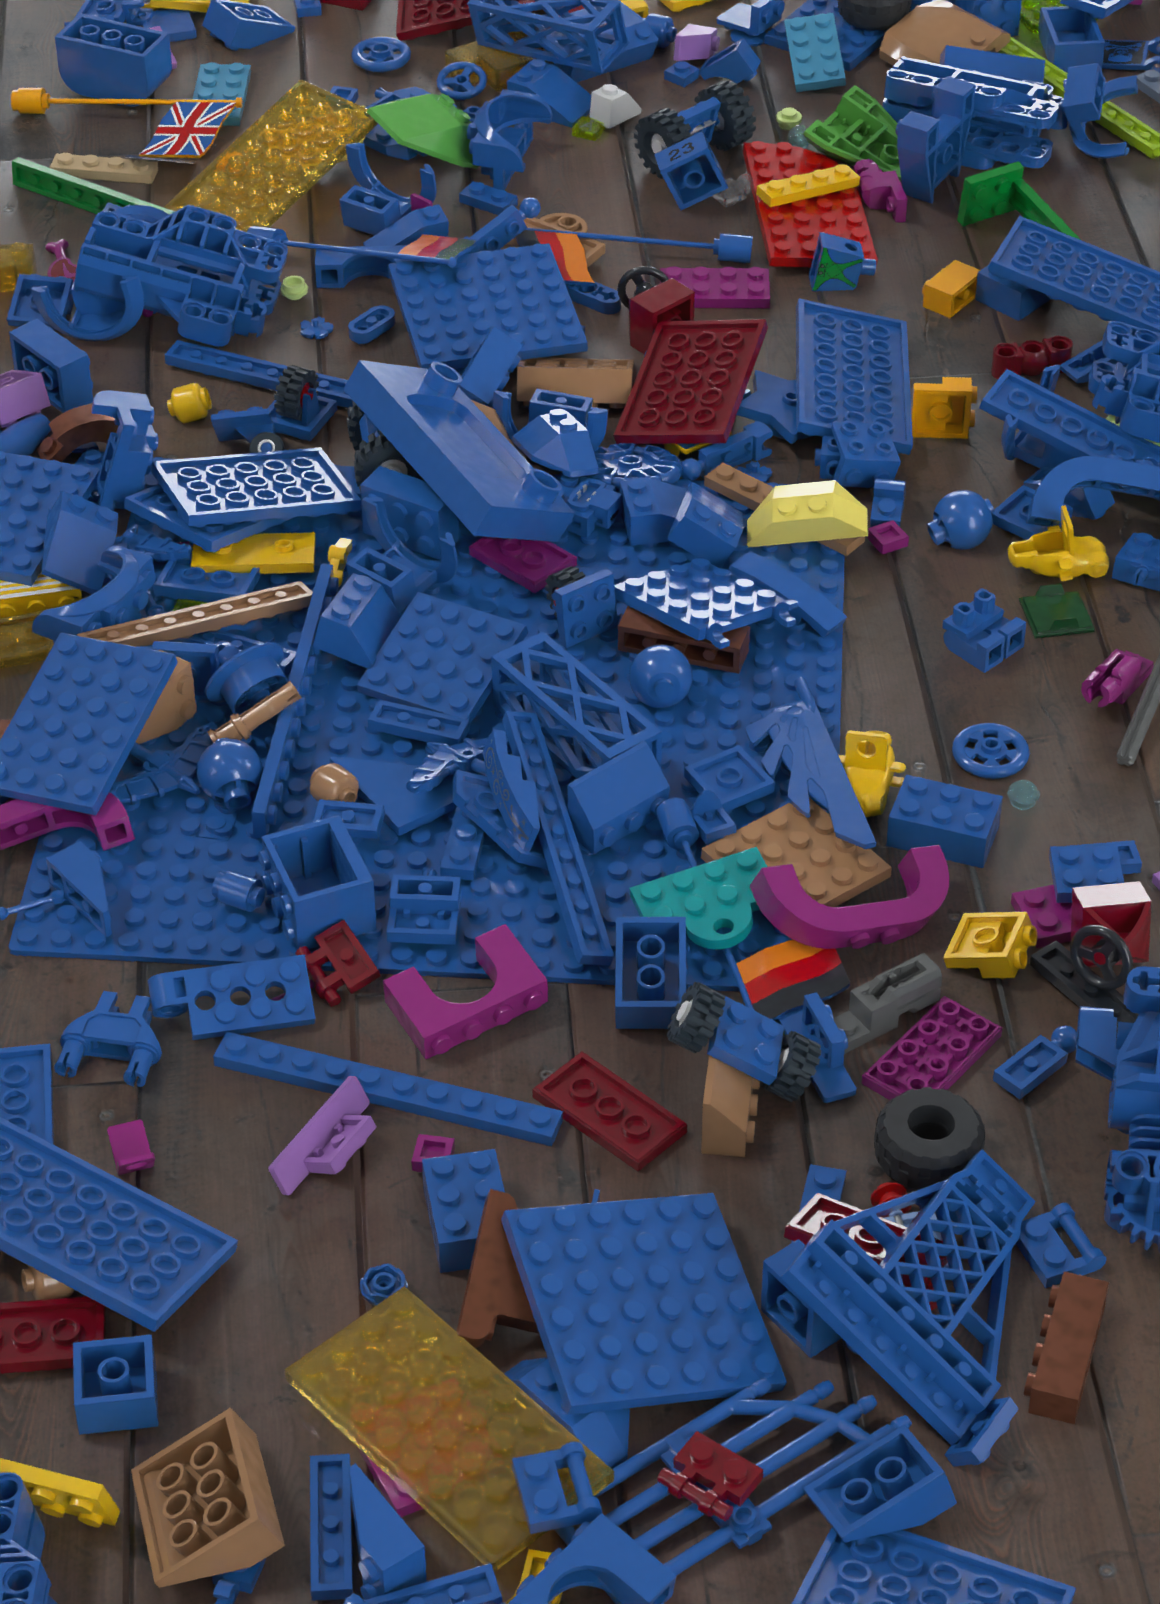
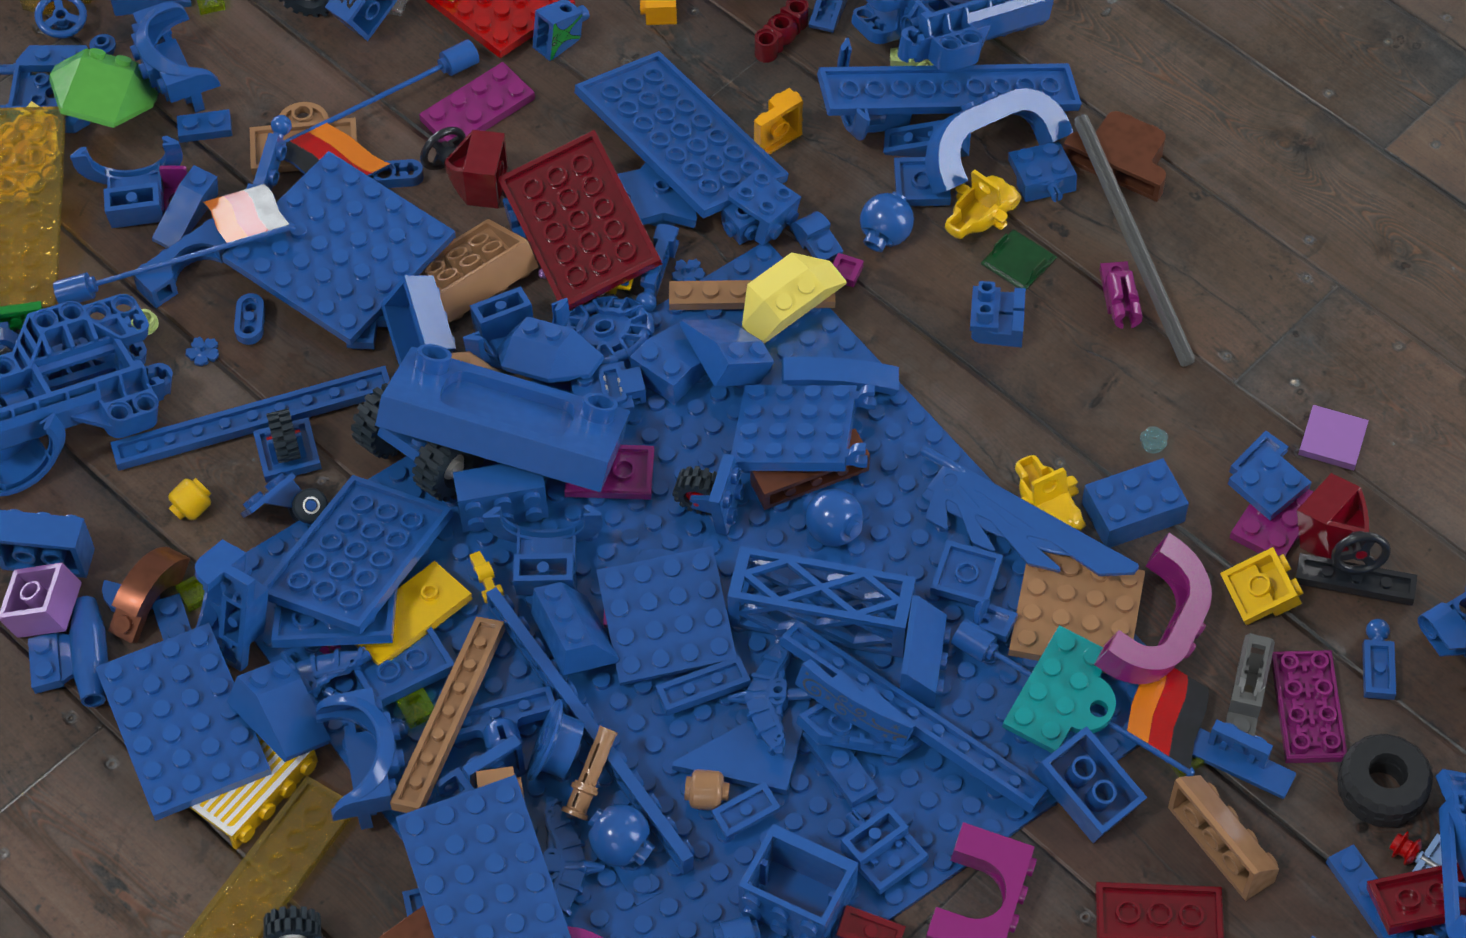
camera: 40 degrees left, 15 degrees up
(744, 1041) = (1220, 800): plate -> none
(990, 750) = (1094, 395): blue plate -> none

